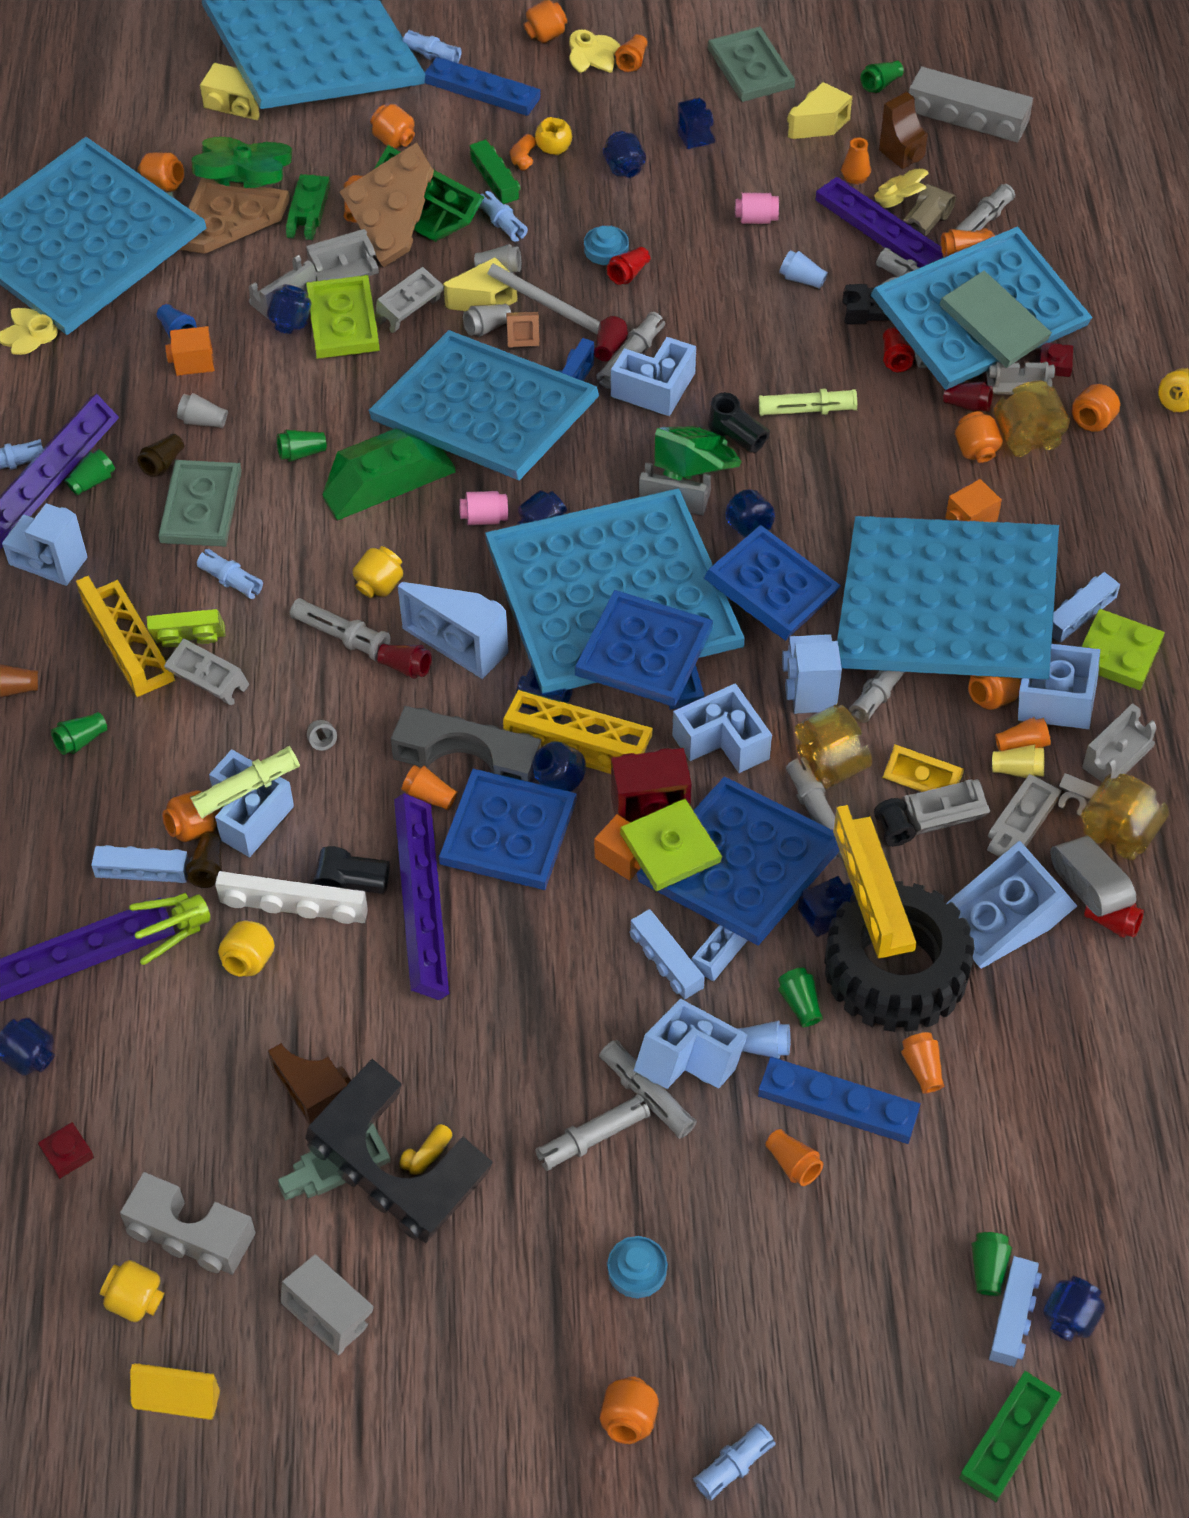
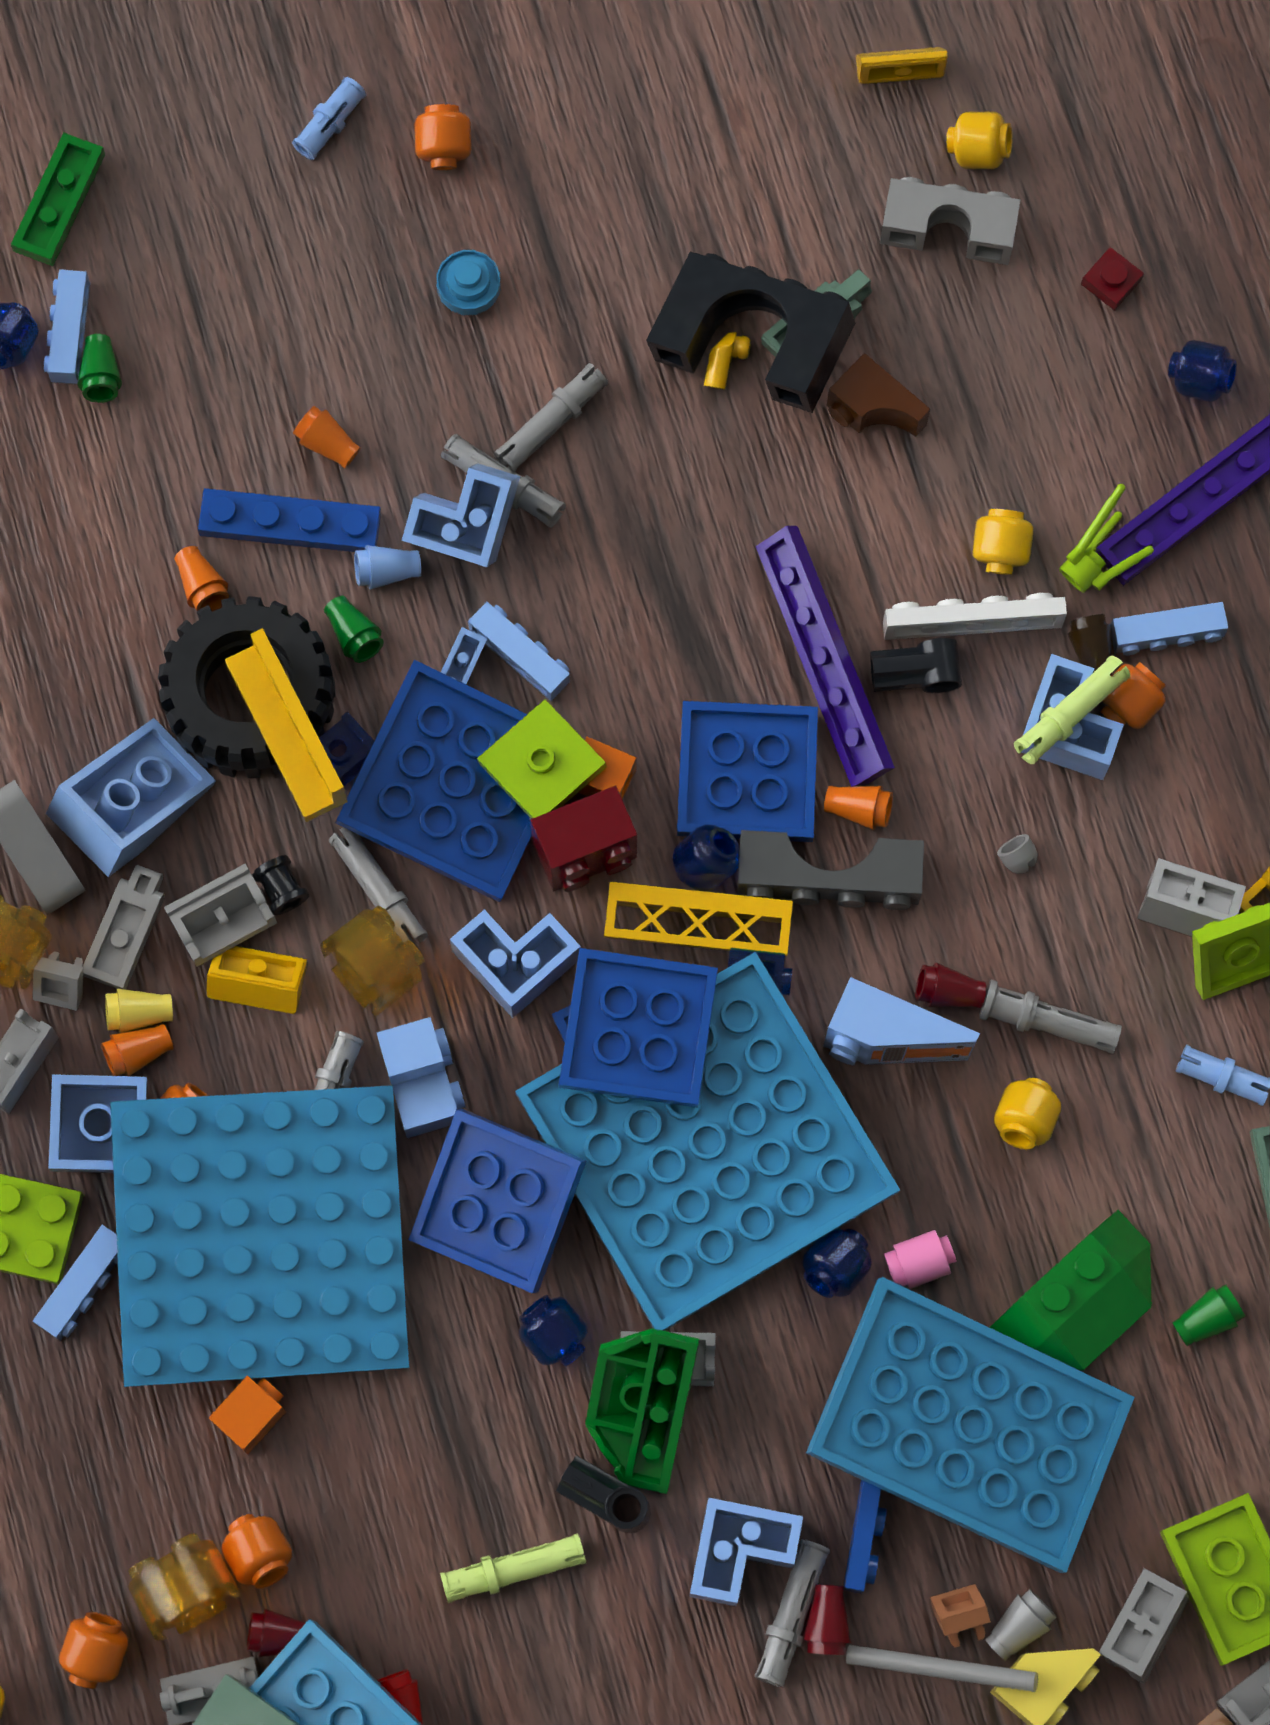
camera: 165 degrees right, 20 degrees up
(325, 1304) = (779, 171): light grey hinge -> none

